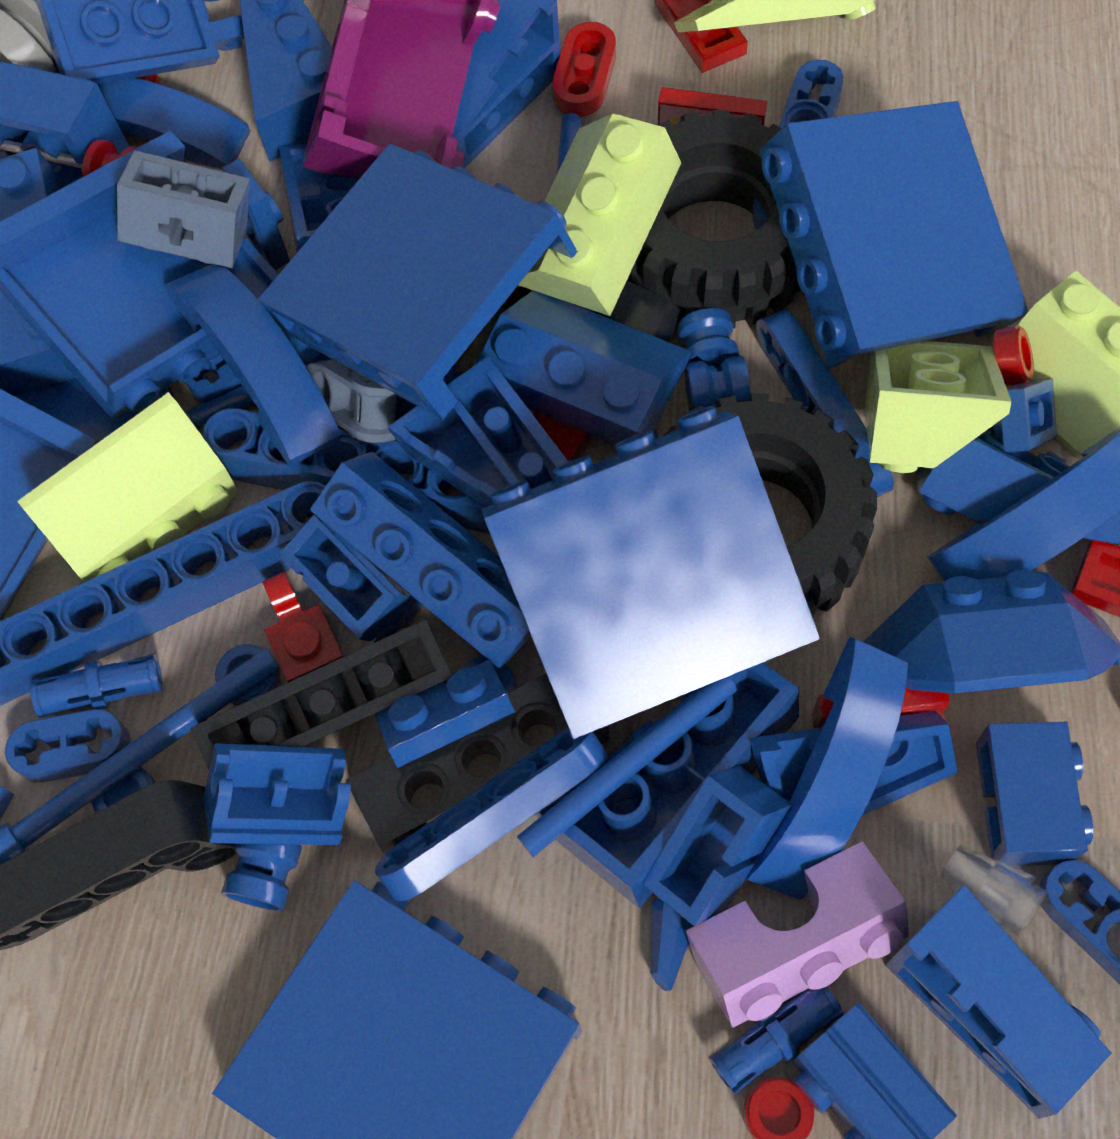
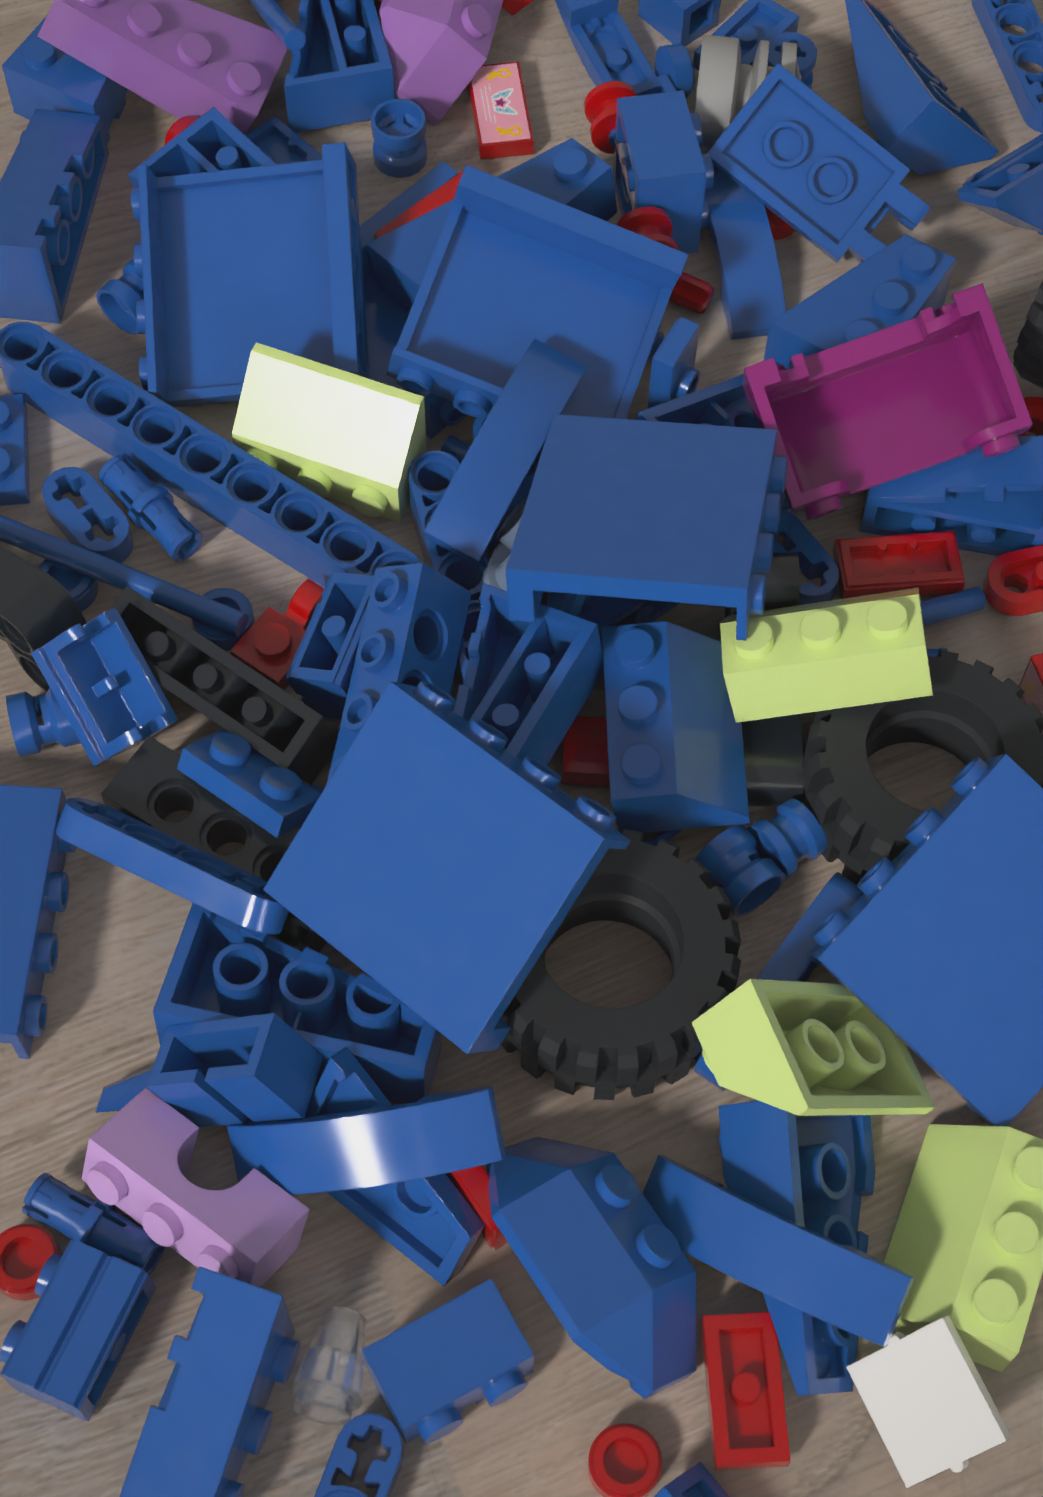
camera: 55 degrees right, 5 degrees down
(182, 209) = (608, 307): sand blue brick -> none
(518, 149) = (899, 563): none -> red plate
(624, 765) = (269, 952): blue bar -> none
(1013, 355) = (934, 1133): red tile -> none
(1030, 416) = (869, 1175): blue plate -> none

